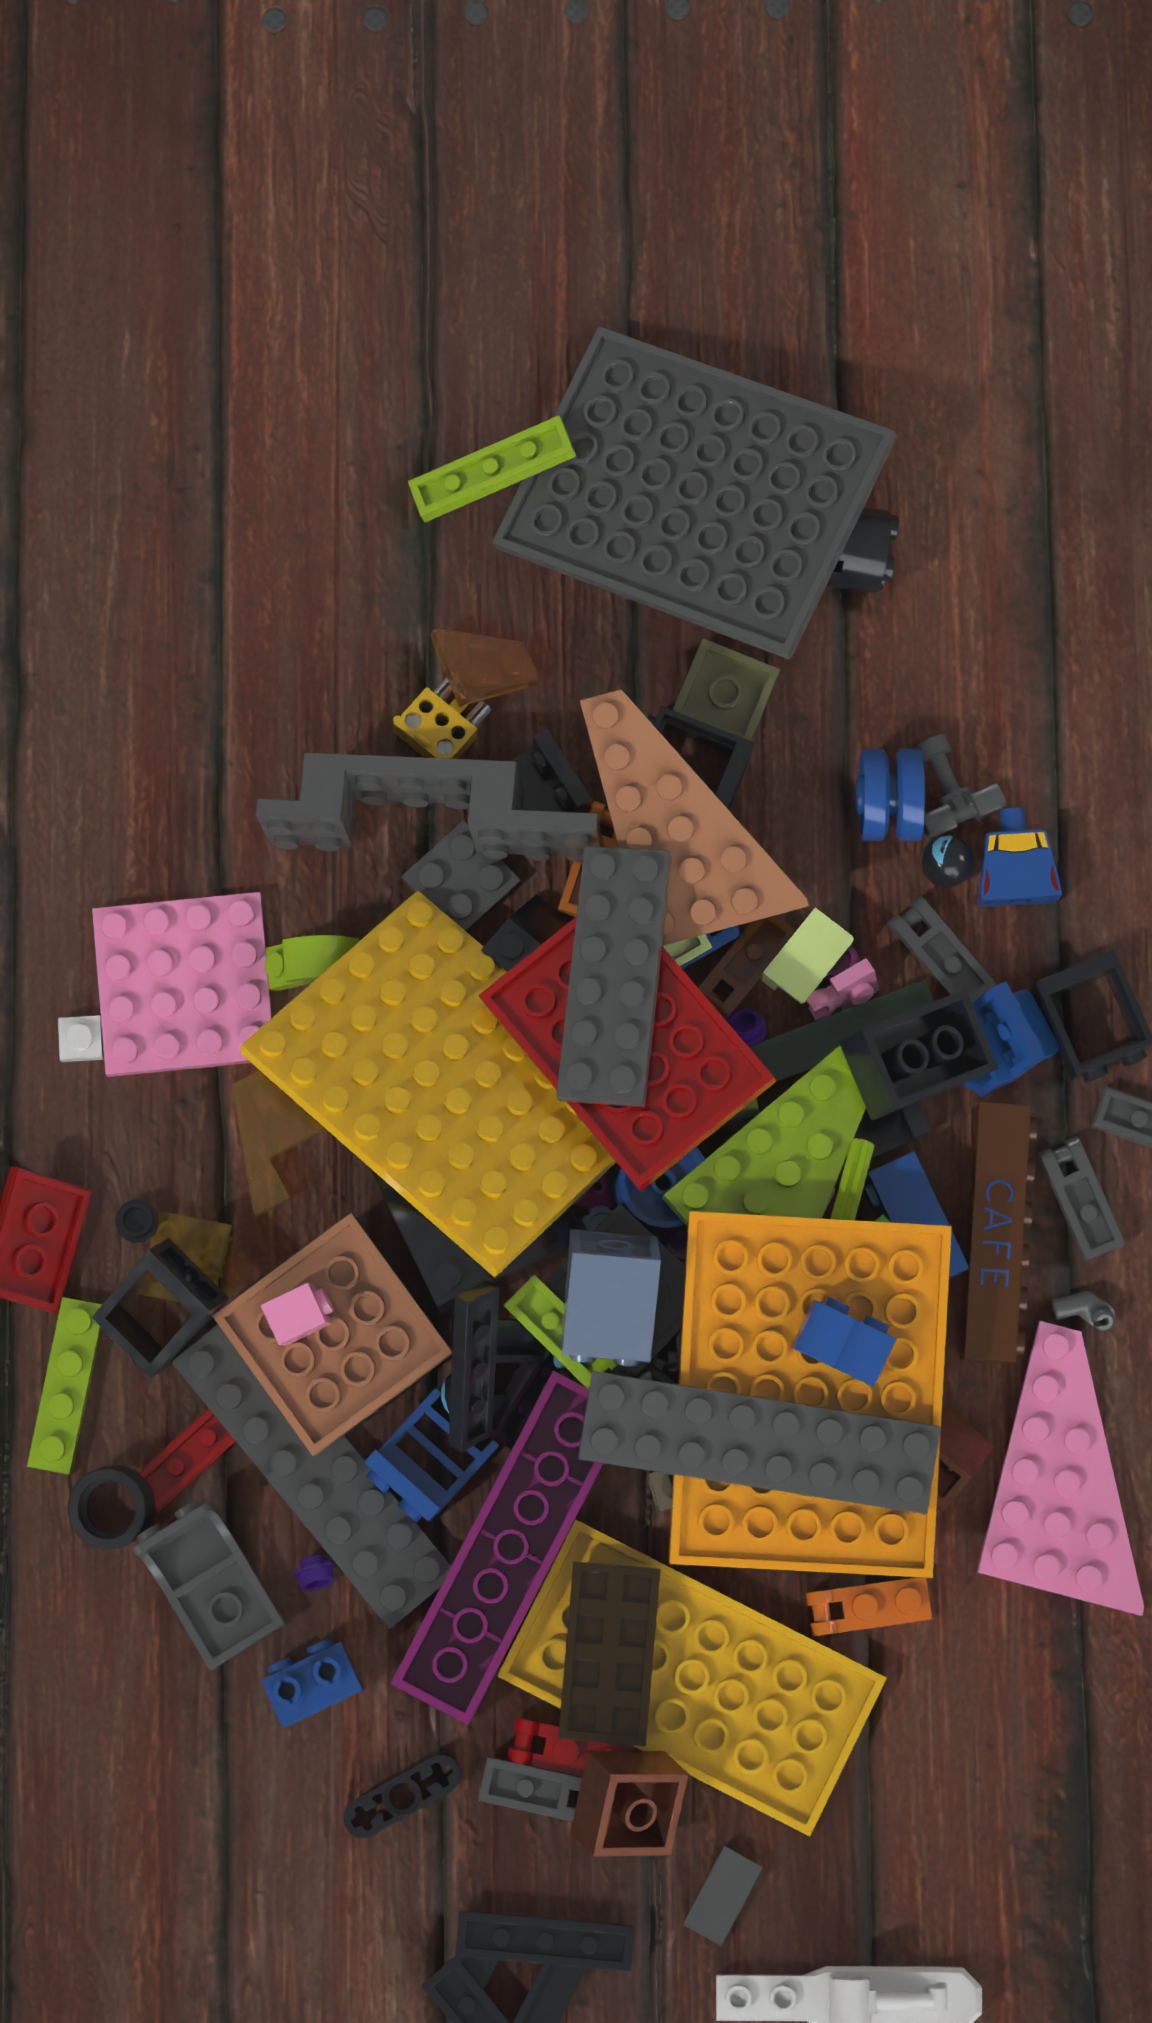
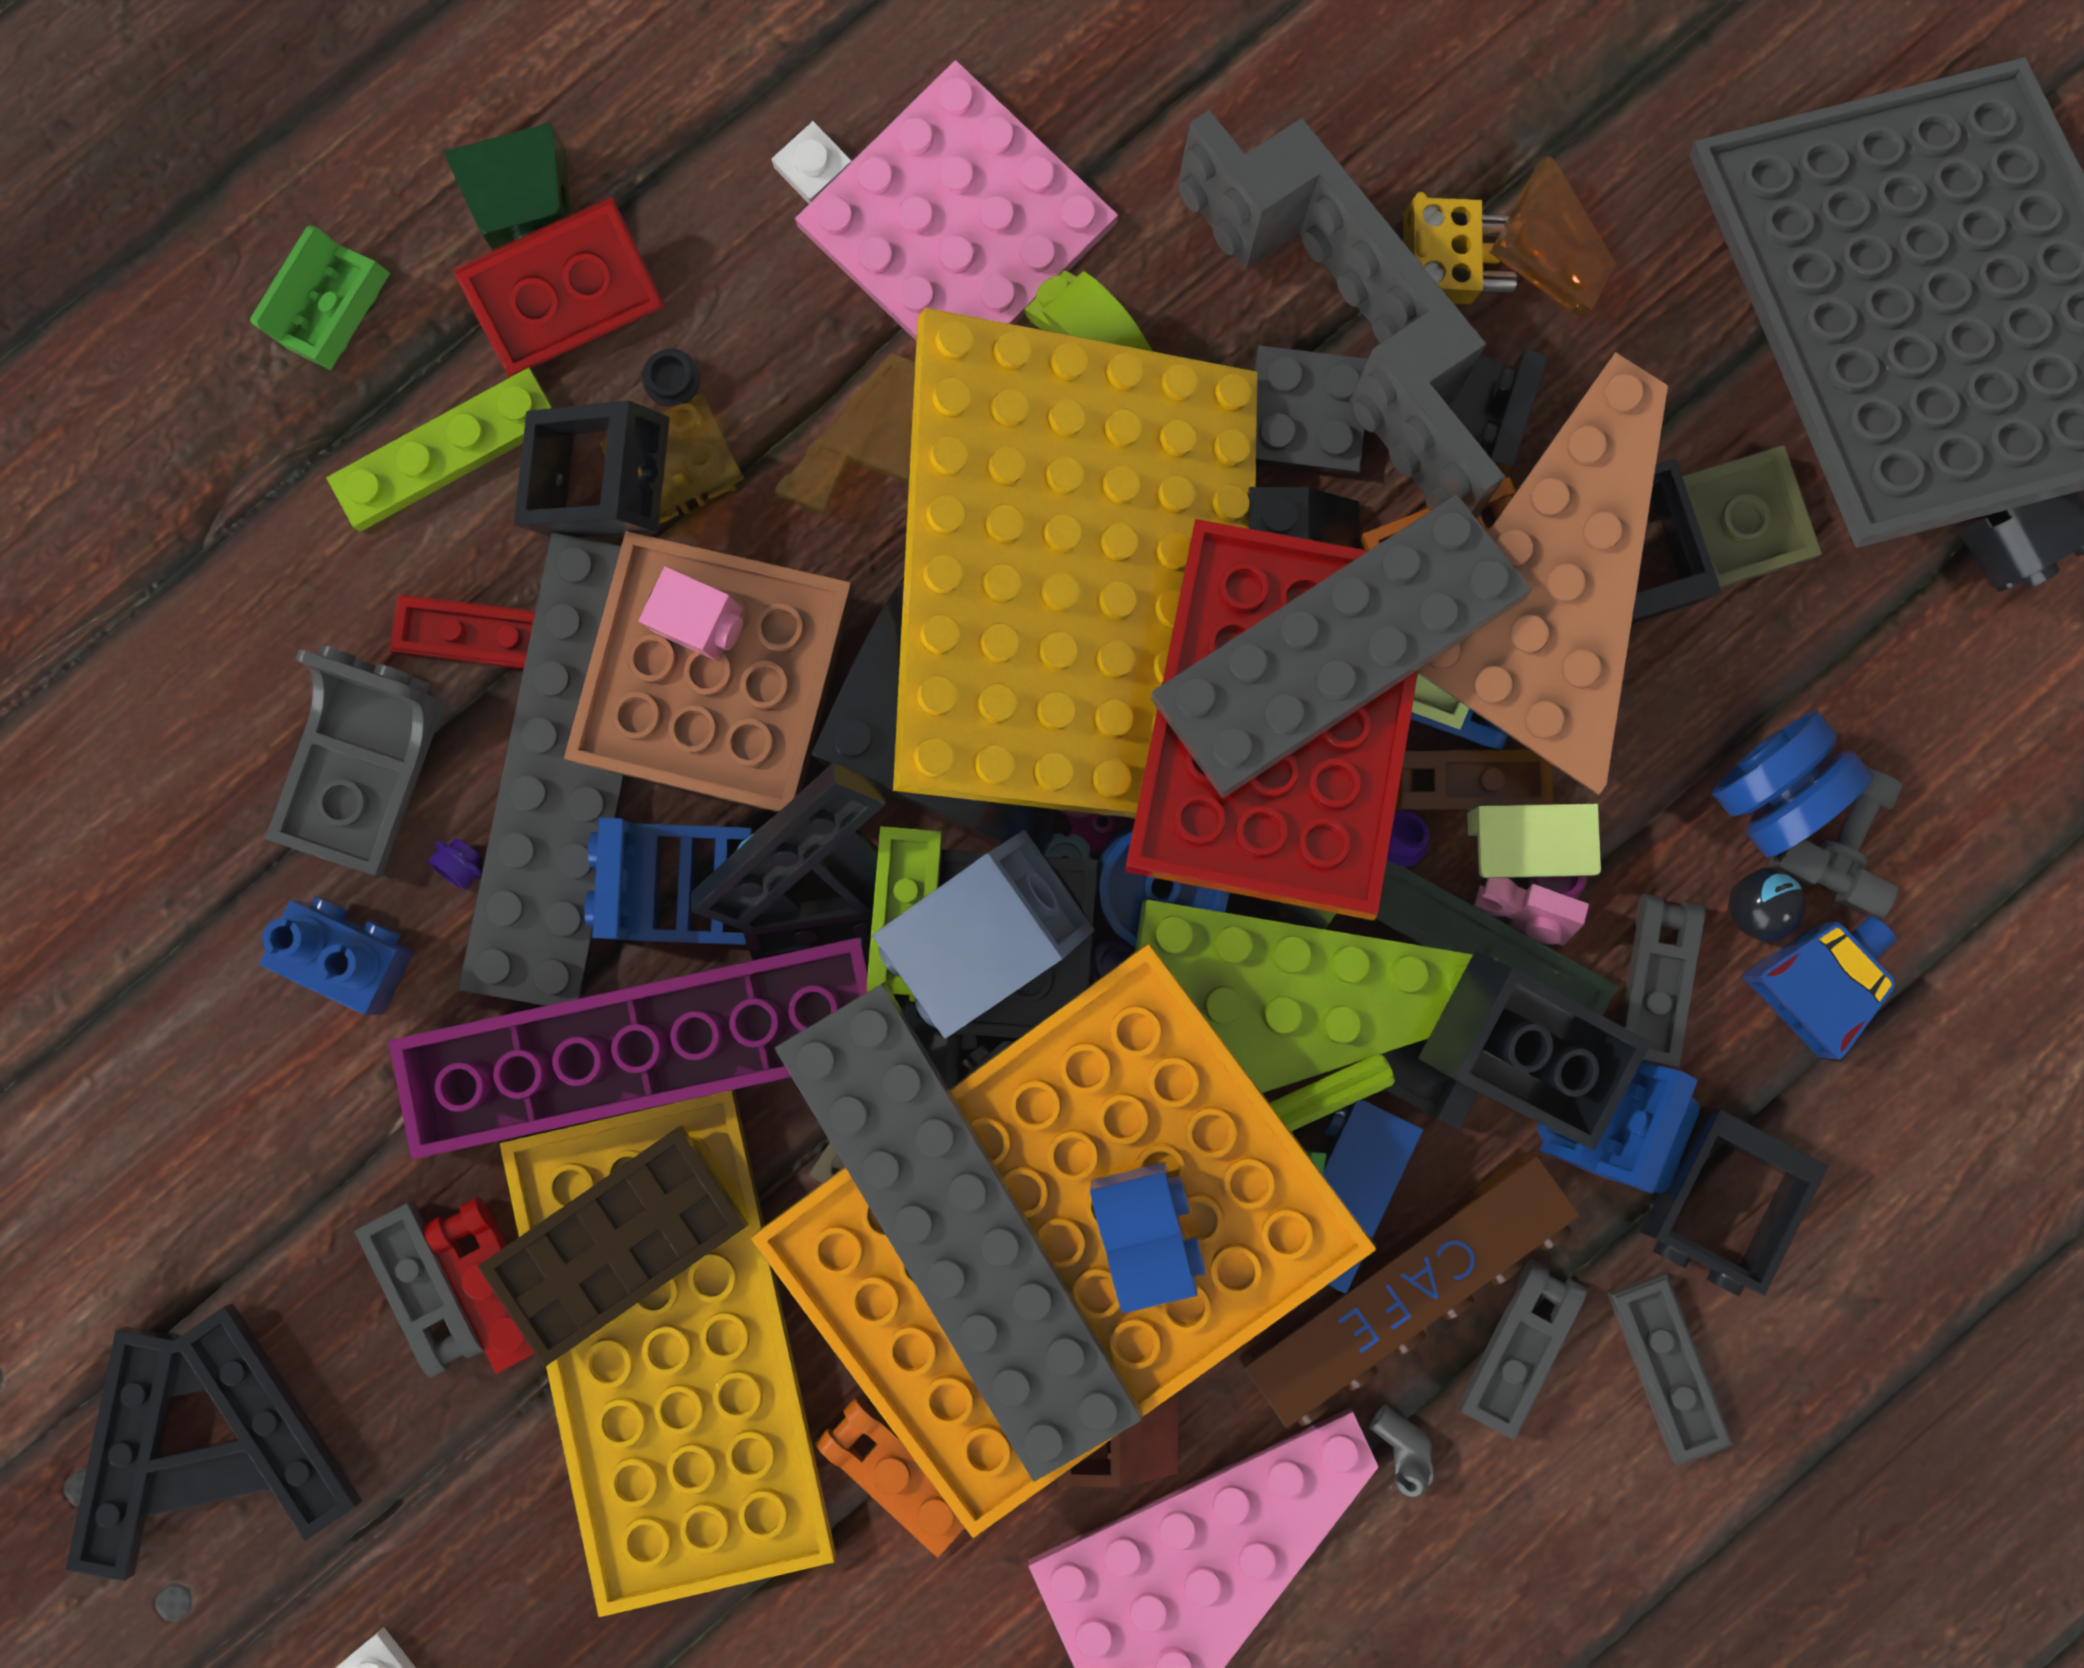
camera: 55 degrees right, 5 degrees up
(80, 1517) = (314, 583): black tyre -> none
(368, 1802) = (268, 1115): black beam -> none
(492, 468) = (1776, 73): lime plate -> none
(629, 1803) = (467, 1401): copper brick -> none
(722, 1895) = (467, 1569): dark grey tile -> none

